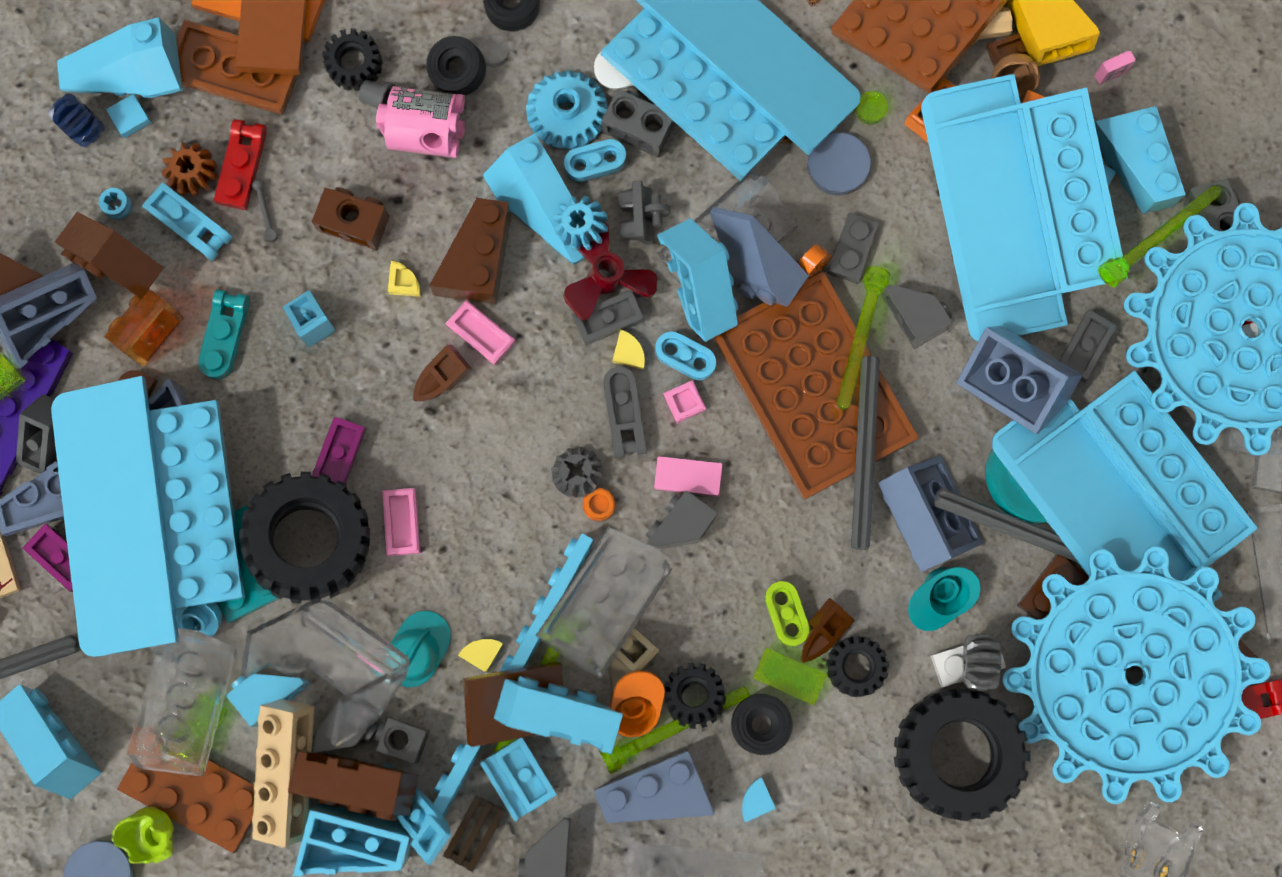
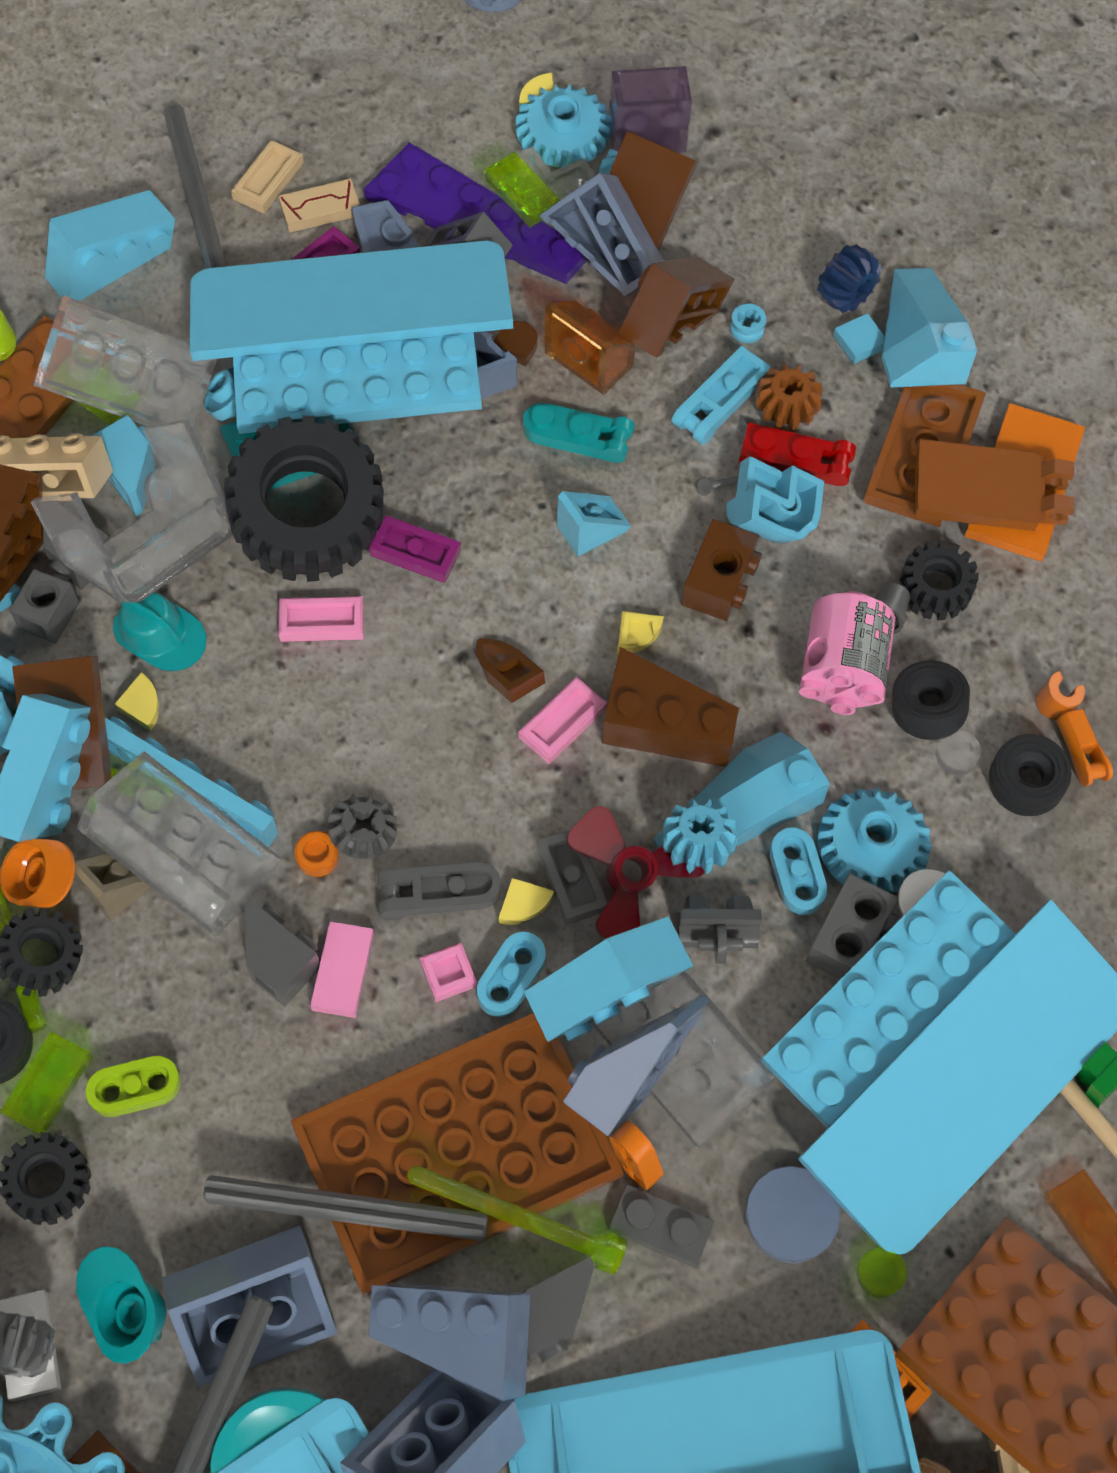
camera: 90 degrees right, 15 degrees down
(292, 176) = (775, 502): none -> medium azure brick
(828, 626) = (102, 1137): reddish brown plate -> none
(942, 370) = (457, 1331): none -> sand blue wedge

